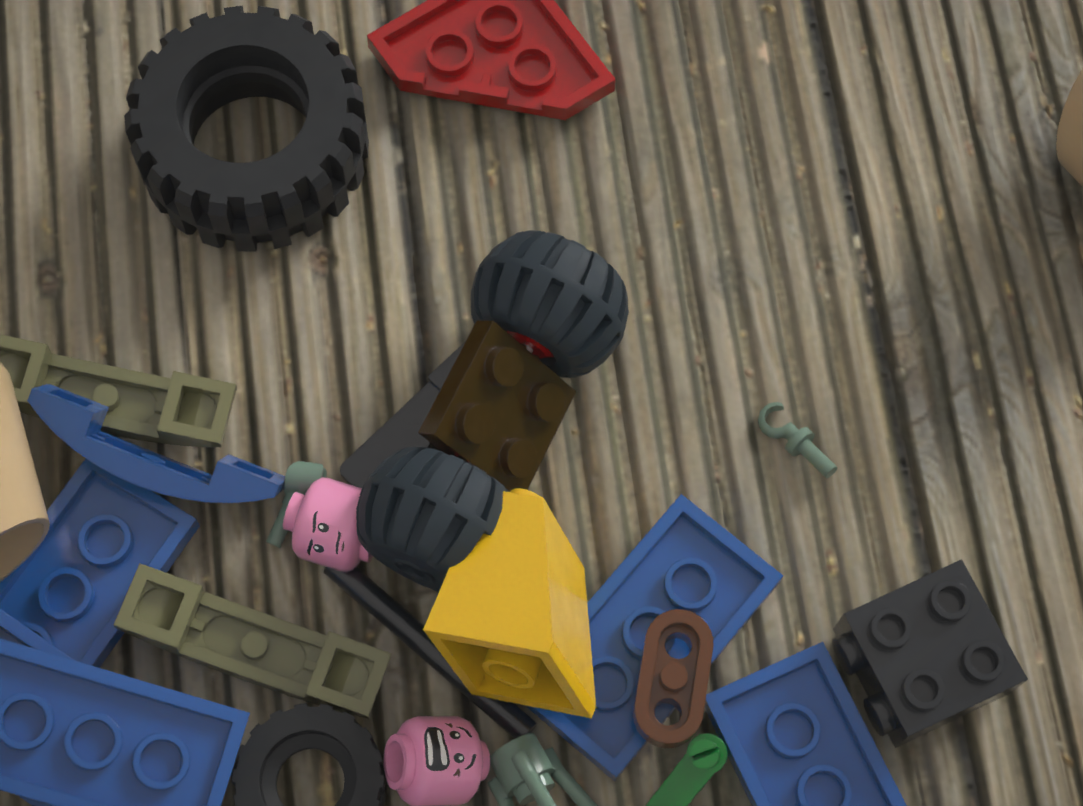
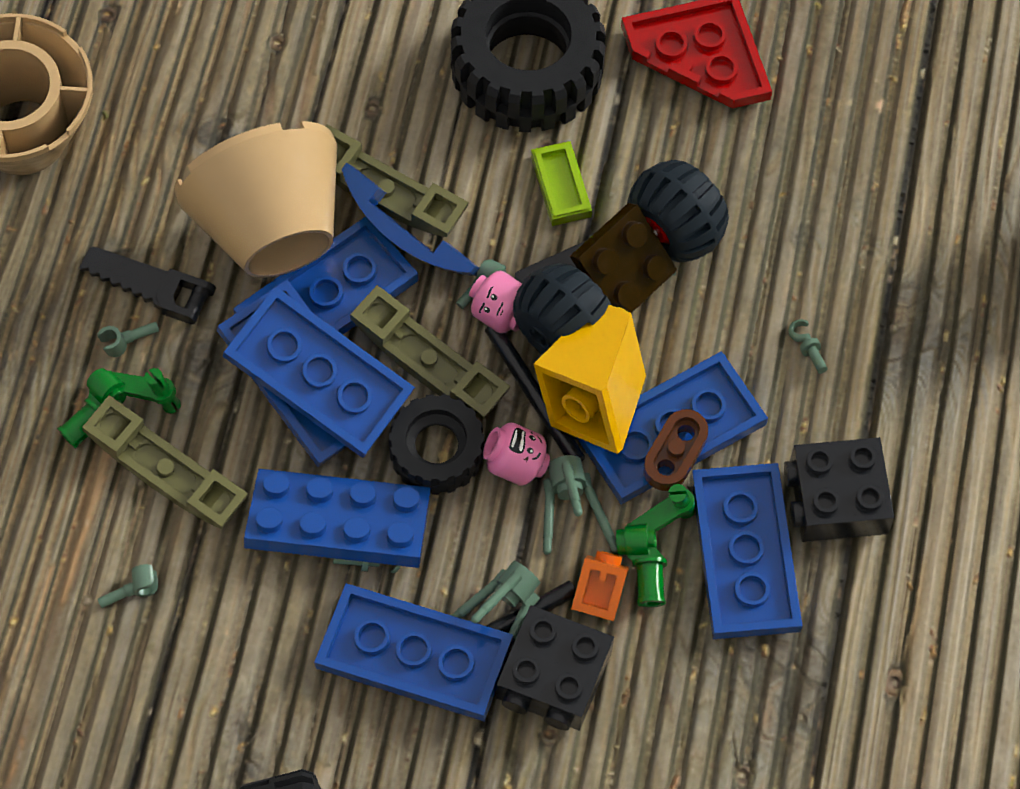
camera: 20 degrees right, 5 degrees down
(361, 307) = (561, 183): none -> lime tile

